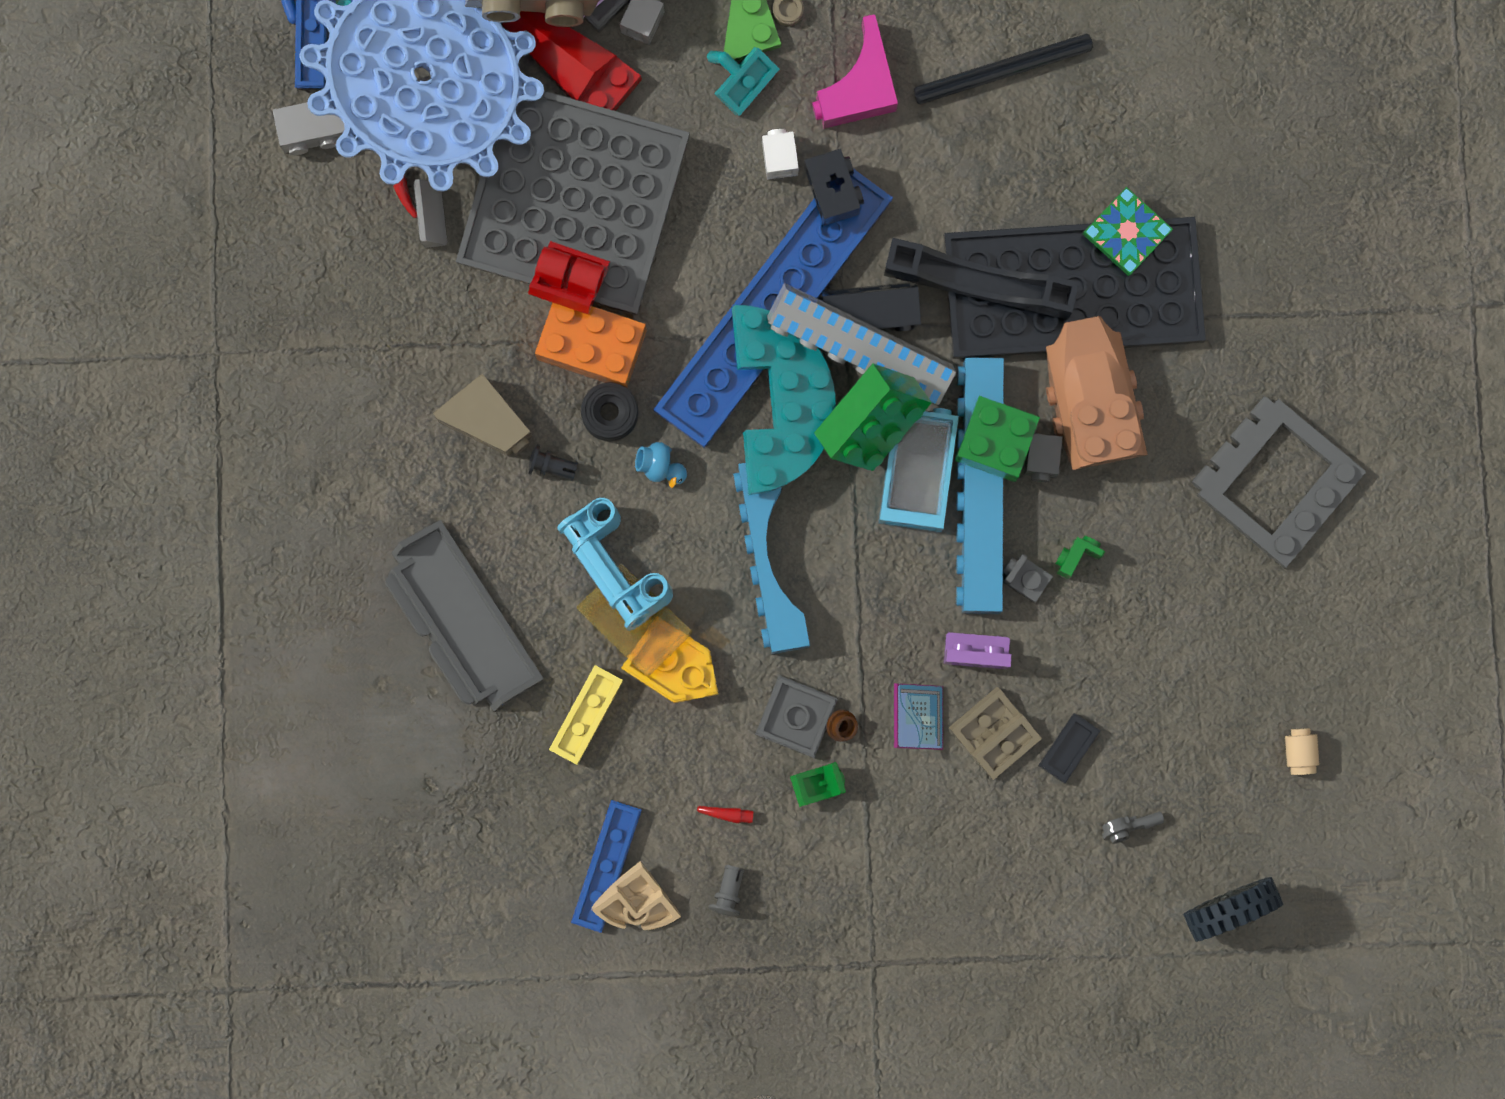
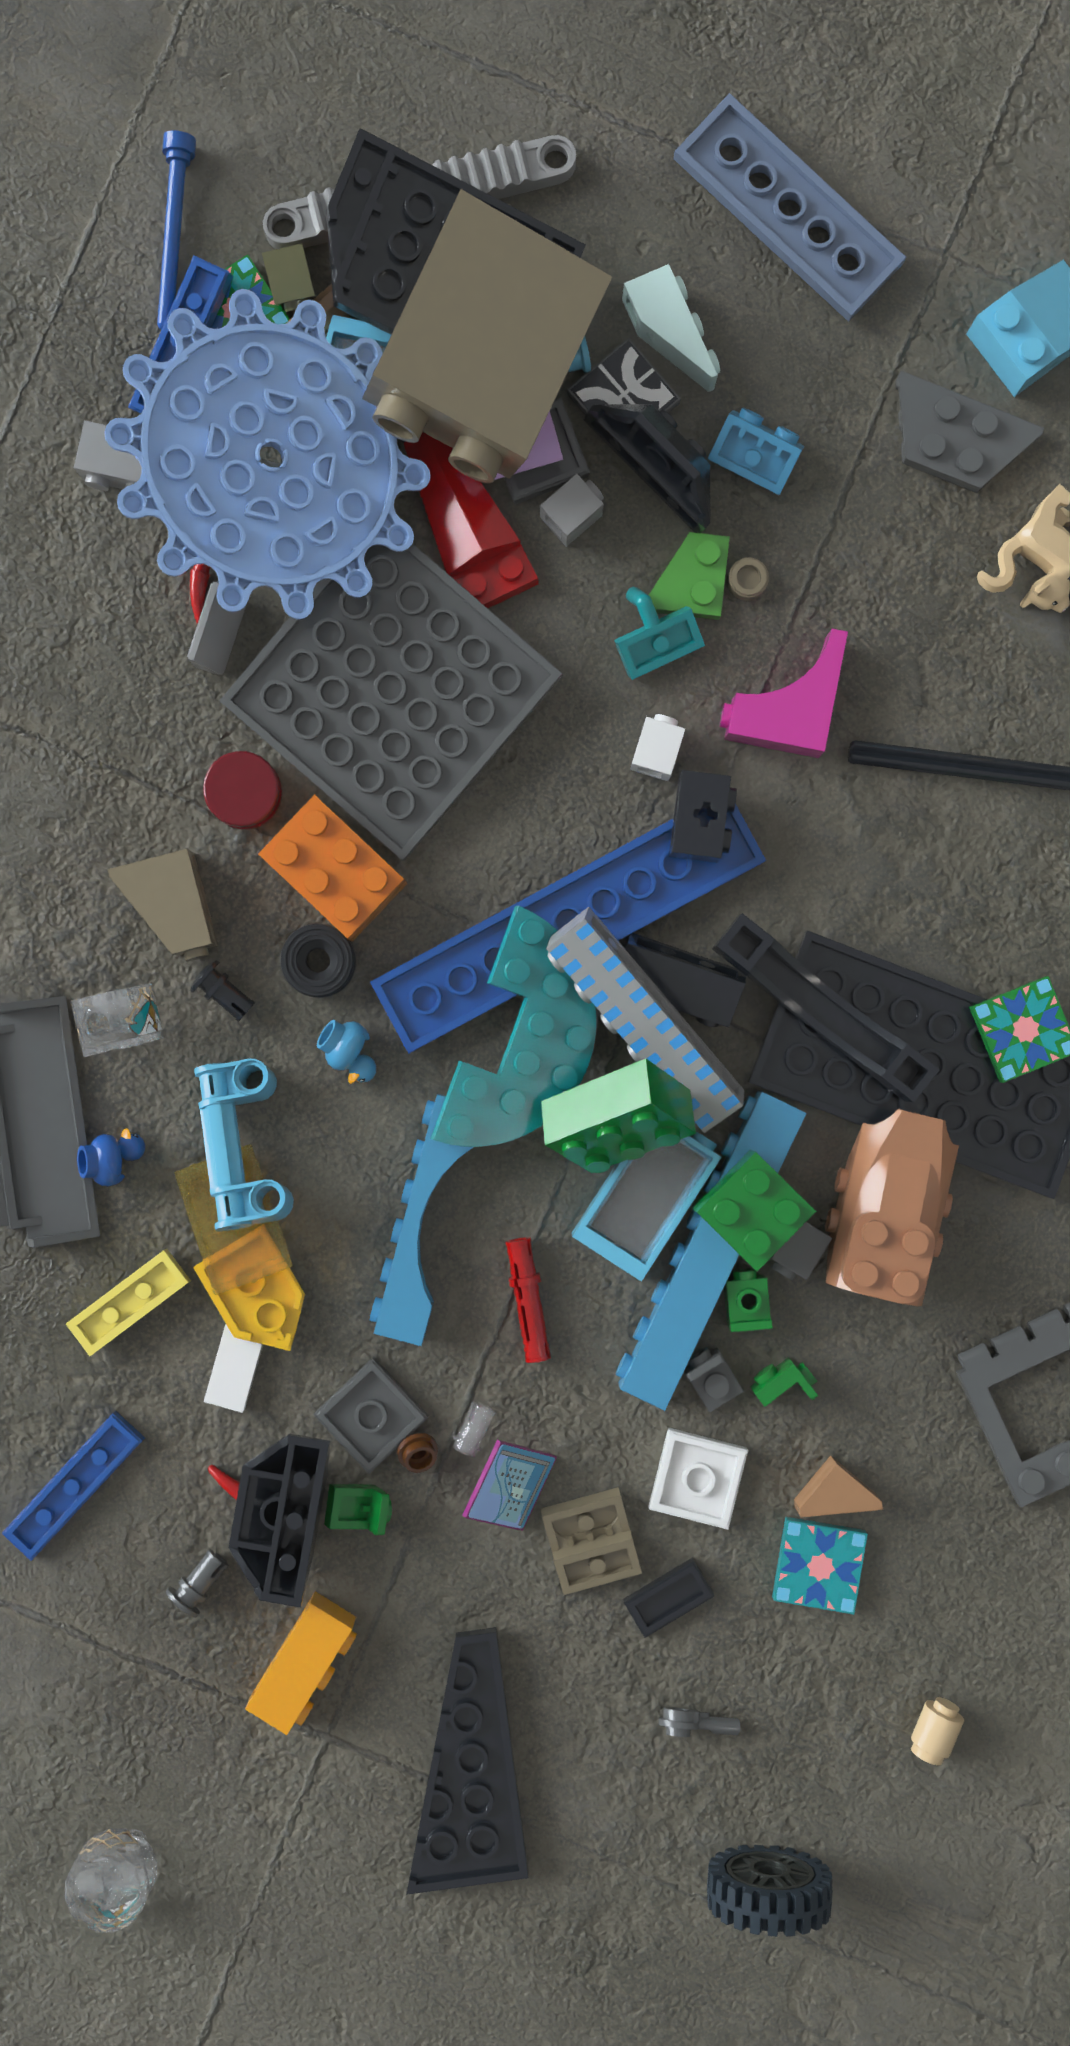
camera: 25 degrees right, 5 degrees up
(486, 514) = (117, 1019): none -> clear brick
(500, 317) = (242, 790): none -> dark red head
(523, 618) = (104, 1157): none -> blue animal
(568, 277) = (337, 781): red plate -> none
(636, 901) = (87, 1542): tan brick -> none
(683, 729) = (233, 1372): none -> white tile
(765, 810) = (280, 1517): none -> black wedge
(830, 914) = (302, 1664): none -> light orange brick
(869, 581) = (529, 1306): none -> red pin
(874, 692) = (473, 1429): none -> clear pin
(977, 651) = (614, 1440): medium lavender bracket -> none
(995, 954) = (471, 1800): none -> black wing
(1023, 522) = (742, 1318): none -> green brick
(1050, 654) = (698, 1478): none -> white tile
(1150, 613) = (835, 1492): none -> medium nougat slope
(1165, 675) = (819, 1565): none -> tile

